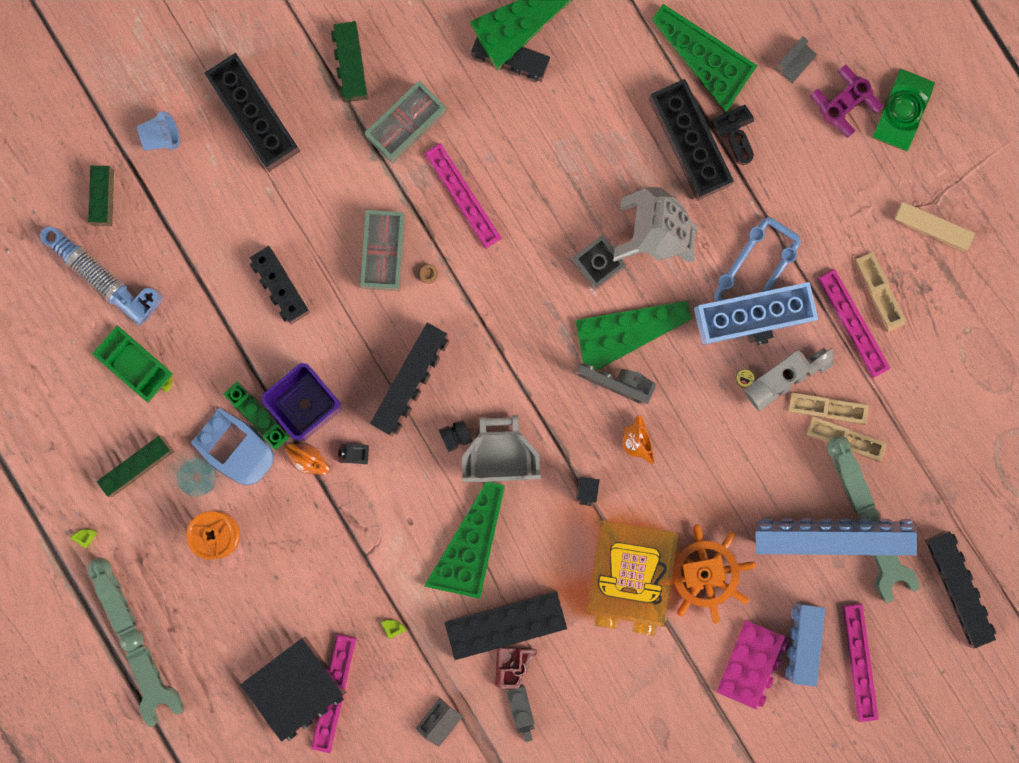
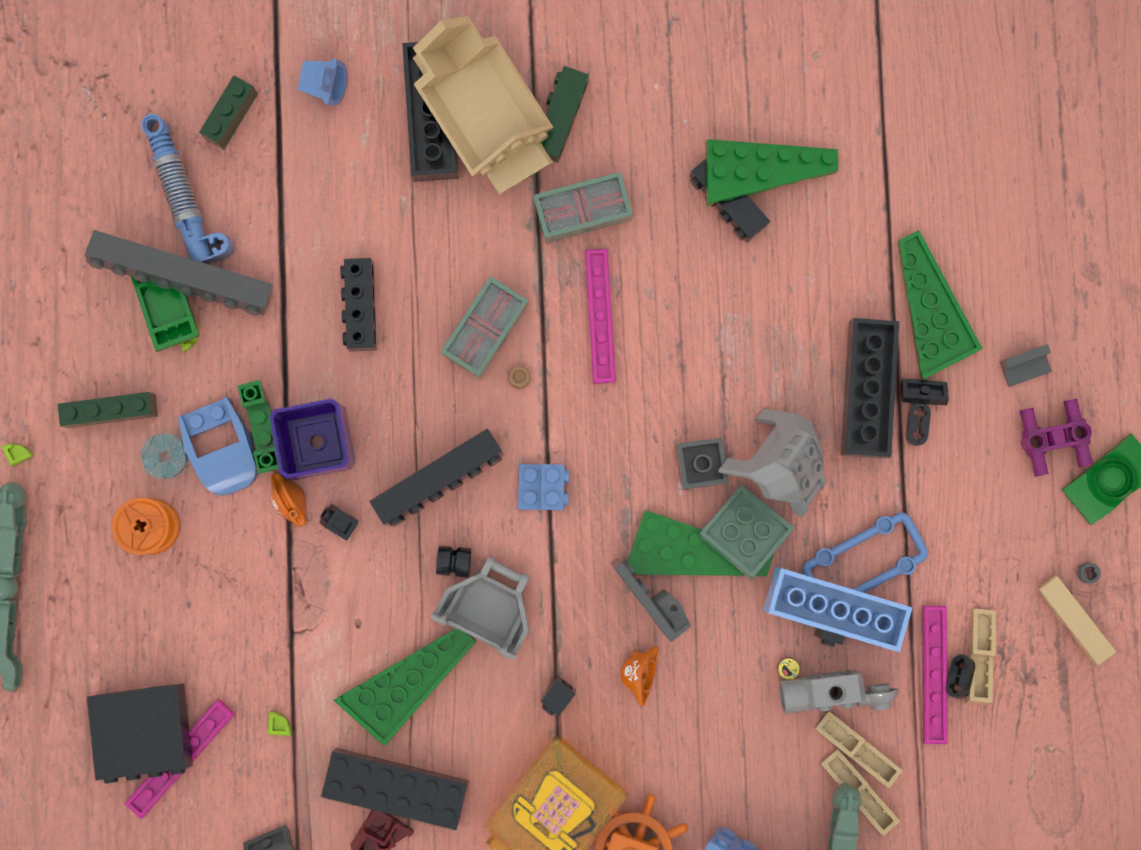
camera: 30 degrees right, 0 degrees up
(132, 335) = (178, 273): none -> dark grey brick
(289, 85) = (482, 103): none -> tan panel
(490, 345) = (542, 487): none -> medium blue plate
(658, 294) = (746, 532): none -> sand green plate
(872, 314) = (960, 676): none -> black beam
(928, 182) = (1083, 577): none -> dark grey bush

